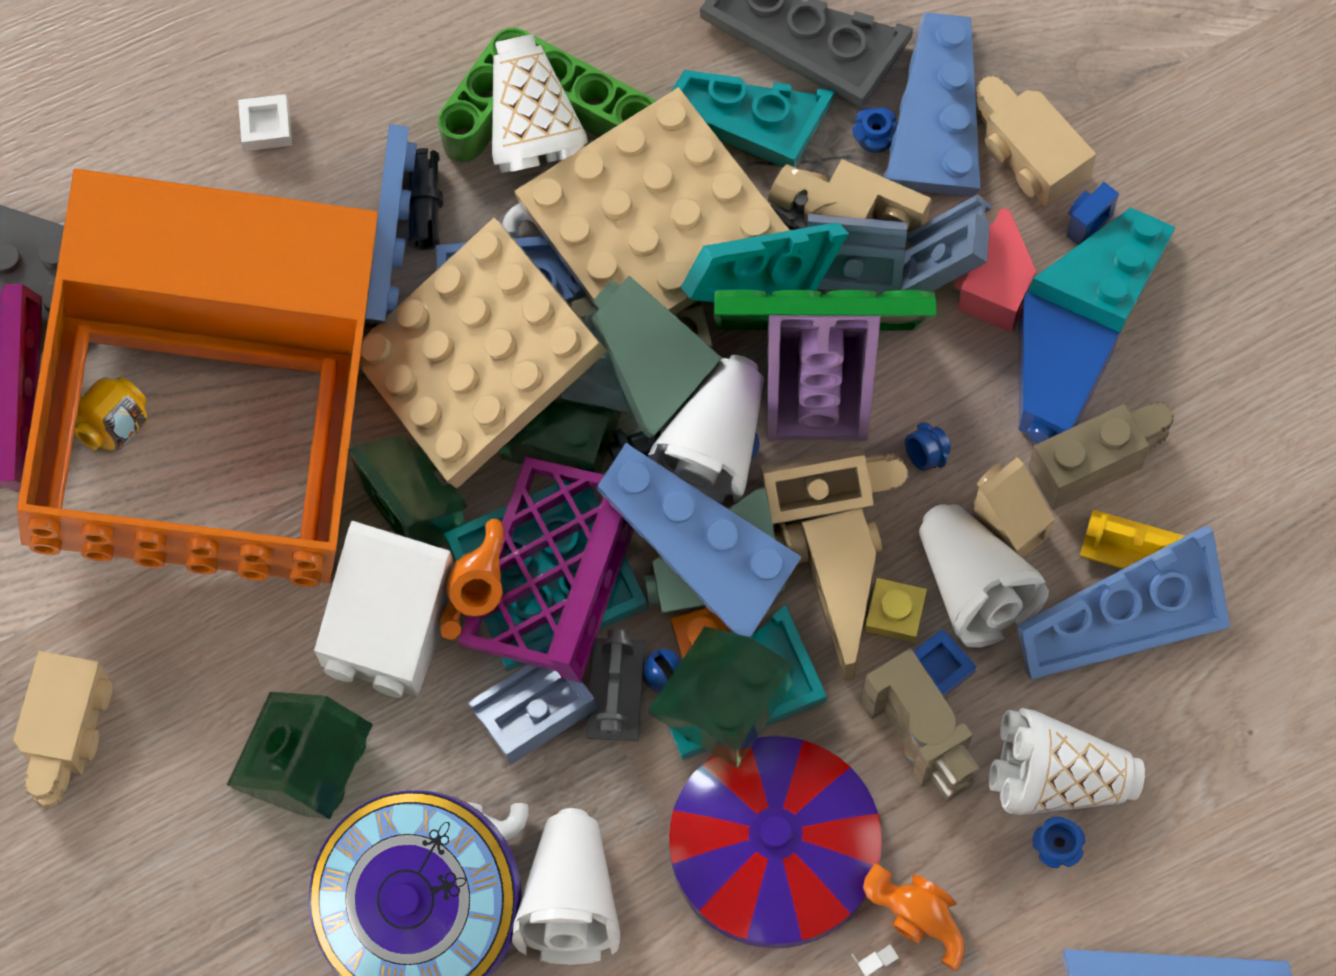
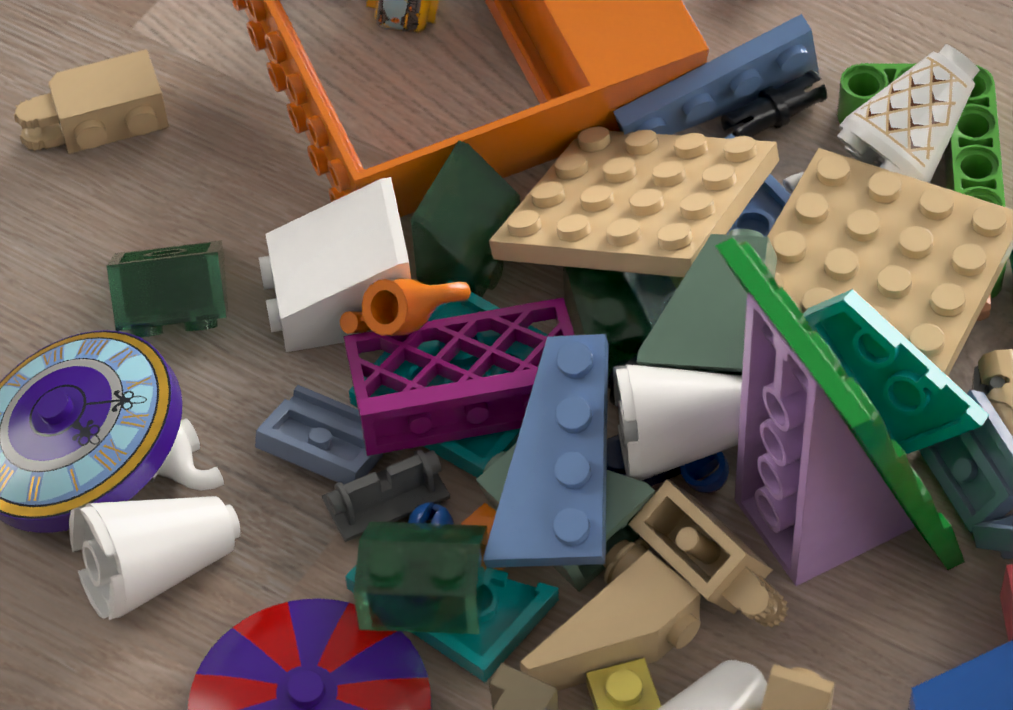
camera: 60 degrees right, 15 degrees down
(928, 447) = (821, 635): blue plate -> none

